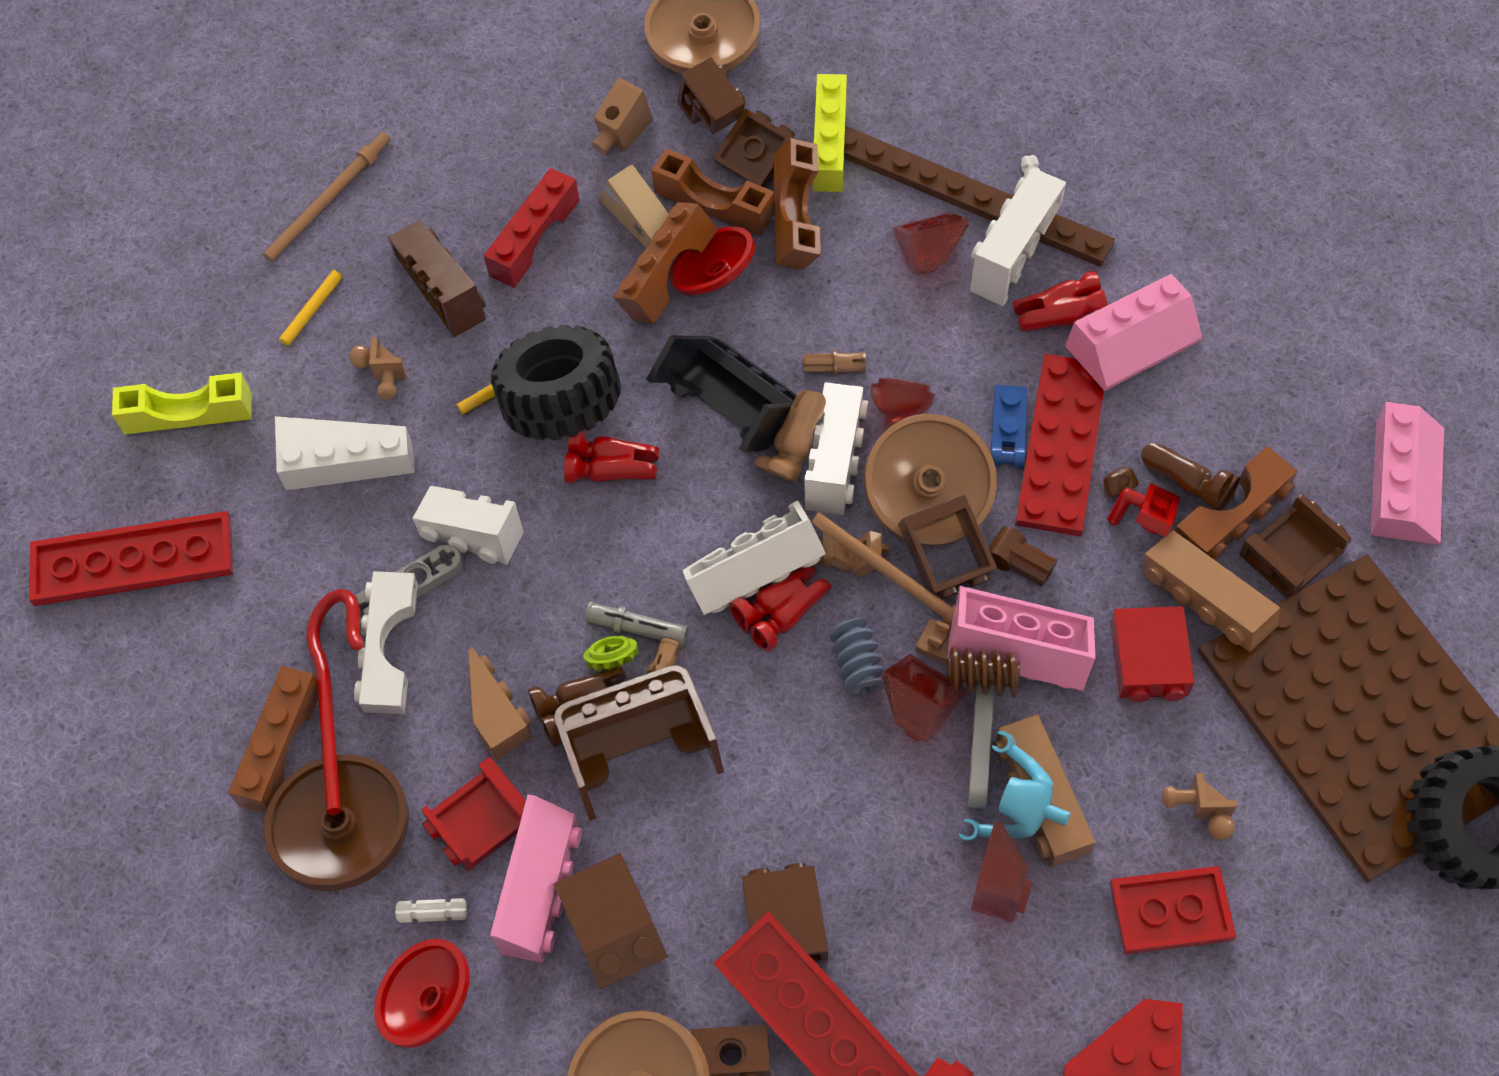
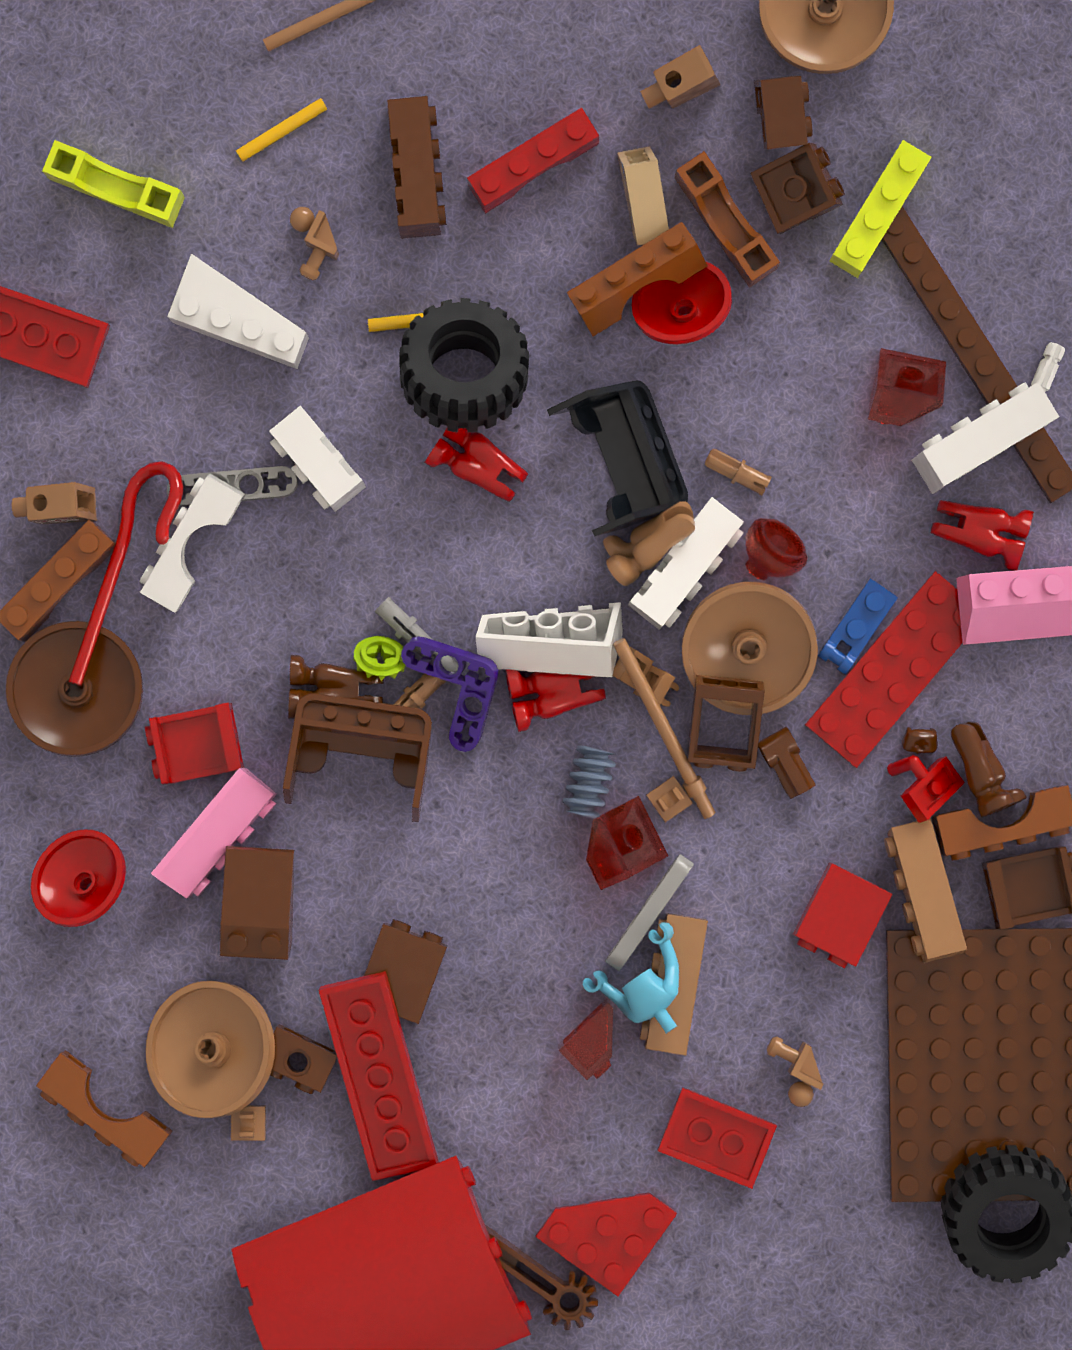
camera: 25 degrees right, 25 degrees up
(243, 672) = (57, 503): none -> medium nougat torso
(431, 910) = (119, 804): white axle -> none
(493, 714) = (252, 658): medium nougat slope -> none
(705, 632) = (470, 684): none -> dark purple beam
(794, 173) = (810, 251): dark orange arch -> none
(983, 671) = (680, 863): reddish brown piece -> none
(1046, 640) = (738, 843): bright pink slope -> none

